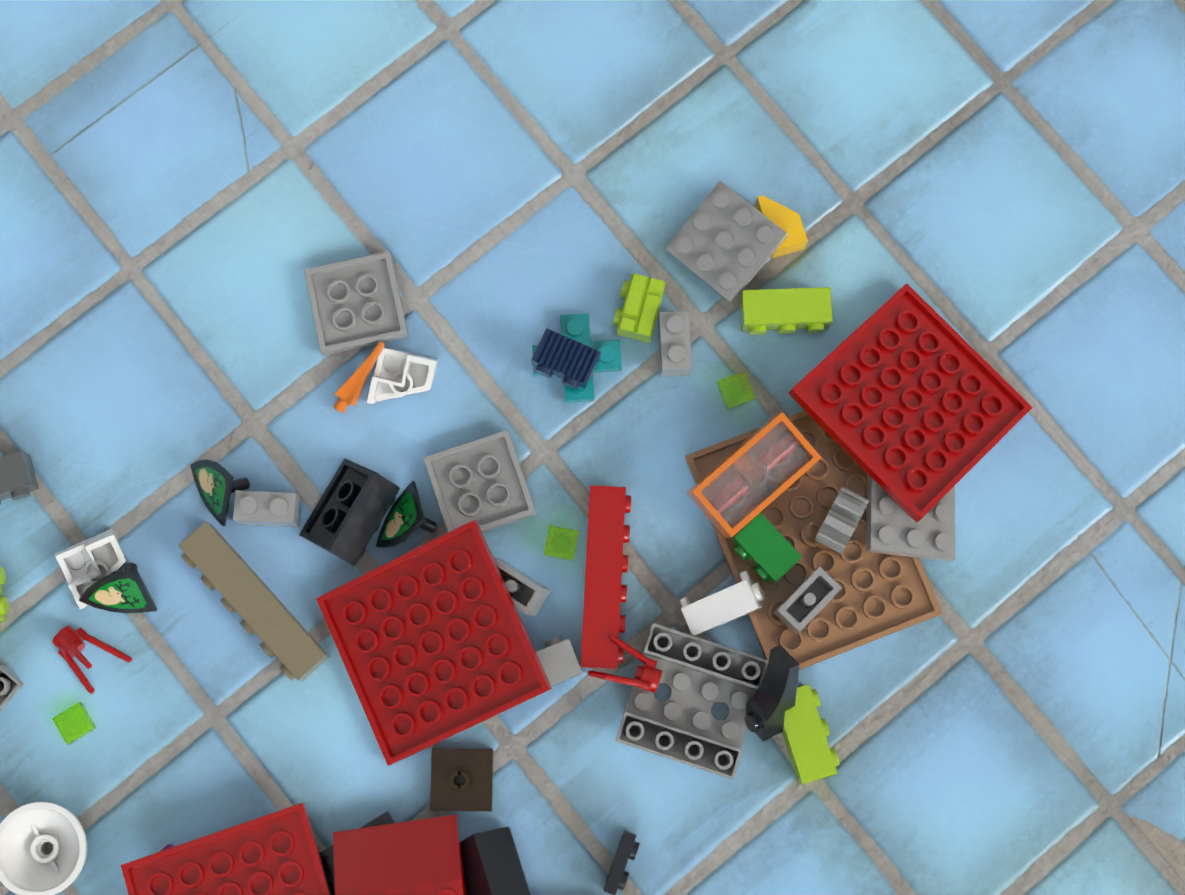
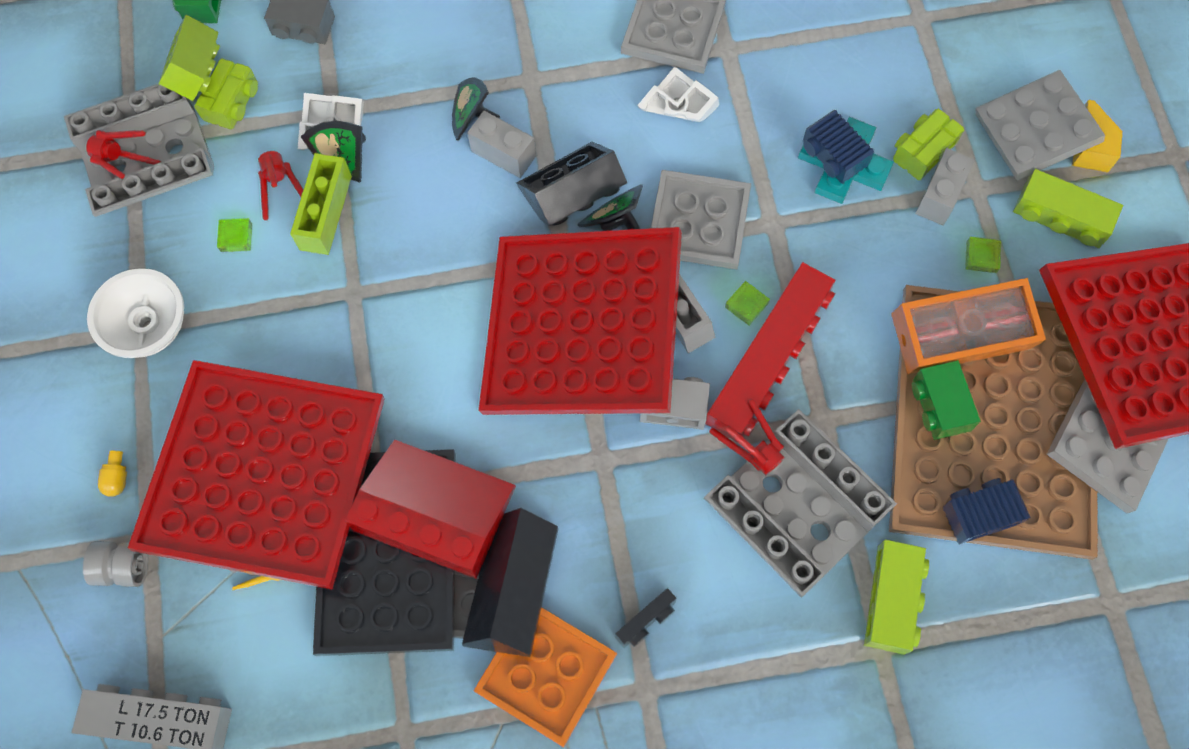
camera: 35 degrees right, 10 degrees down
(139, 656) = (321, 204): none -> lime brick
(253, 601) = (445, 214): dark tan brick -> none
(352, 388) = (632, 87): orange piece -> none
(461, 779) = (538, 462): dark brown tile -> none
(723, 605) = (876, 432): white brick -> none
(774, 695) = (887, 535): black slope -> none
(807, 600) = (965, 465): light grey brick -> none
(840, 627) = (986, 510): none -> dark blue brick
(842, 520) = (1038, 408): light grey gear -> none

